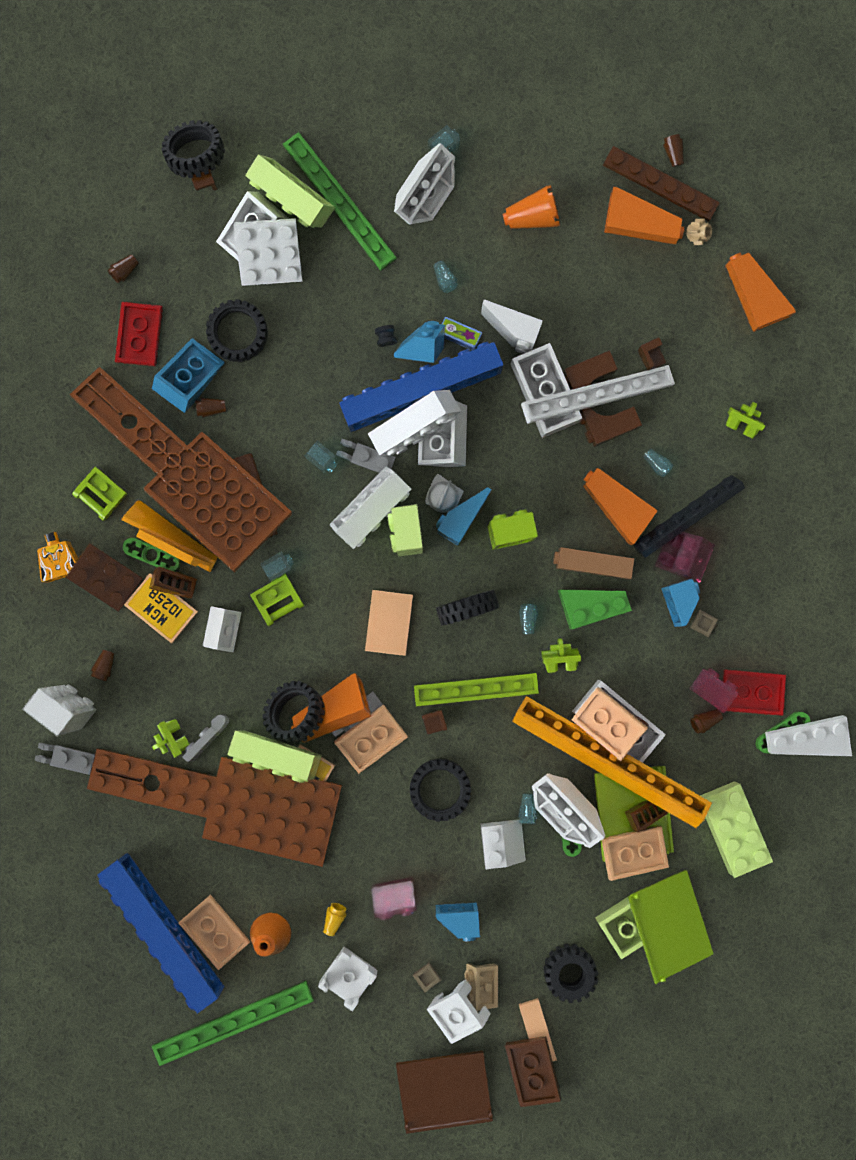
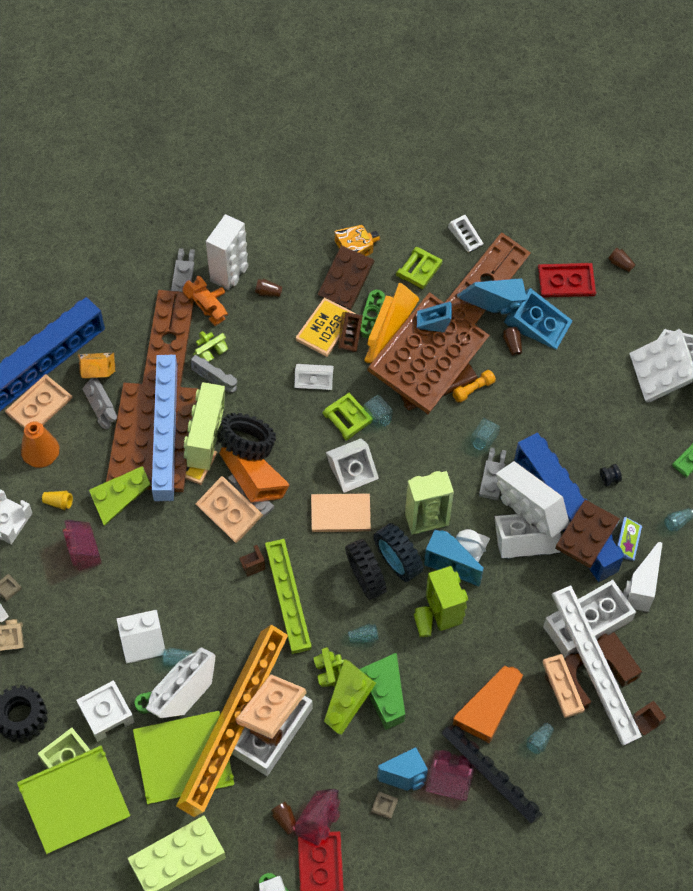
camera: 85 degrees right, 25 degrees down
(65, 440) = (463, 220): none -> white slope
(109, 737) = (206, 300): none -> orange piece
(160, 407) = (495, 295): none -> dark azure slope
(179, 867) = (96, 365): none -> light orange torso
(180, 488) = (435, 318): none -> dark azure slope
(224, 865) = (100, 402): none -> light grey hinge
(232, 307) = (592, 335): black tyre -> none
(252, 444) = (461, 393): none -> light orange piece
(270, 799) = (164, 428): none -> light blue brick
(336, 603) = (352, 465): none -> white slope
(338, 854) = (117, 493): none -> lime wing
(370, 507) = (465, 486): white brick -> none
(424, 343) = (610, 499): dark azure slope -> none
(449, 813) = (190, 596): black tyre -> none
(453, 571) = (398, 552): none -> black wheel
(460, 919) = (65, 603): dark azure slope -> none
(465, 373) = (587, 533): none -> reddish brown plate
(521, 555) = (424, 619): none -> lime cone
(578, 887) = (105, 710): none -> white panel
(594, 563) = (427, 688): medium nougat brick -> none
(596, 643) = (349, 694): none -> lime wing
(616, 430) = (563, 686): none -> light nougat tile
(635, 853) = (144, 759): light nougat tile -> none
(646, 822) = (170, 755): reddish brown slope -> none
(753, 425) = (605, 821): lime hips -> none

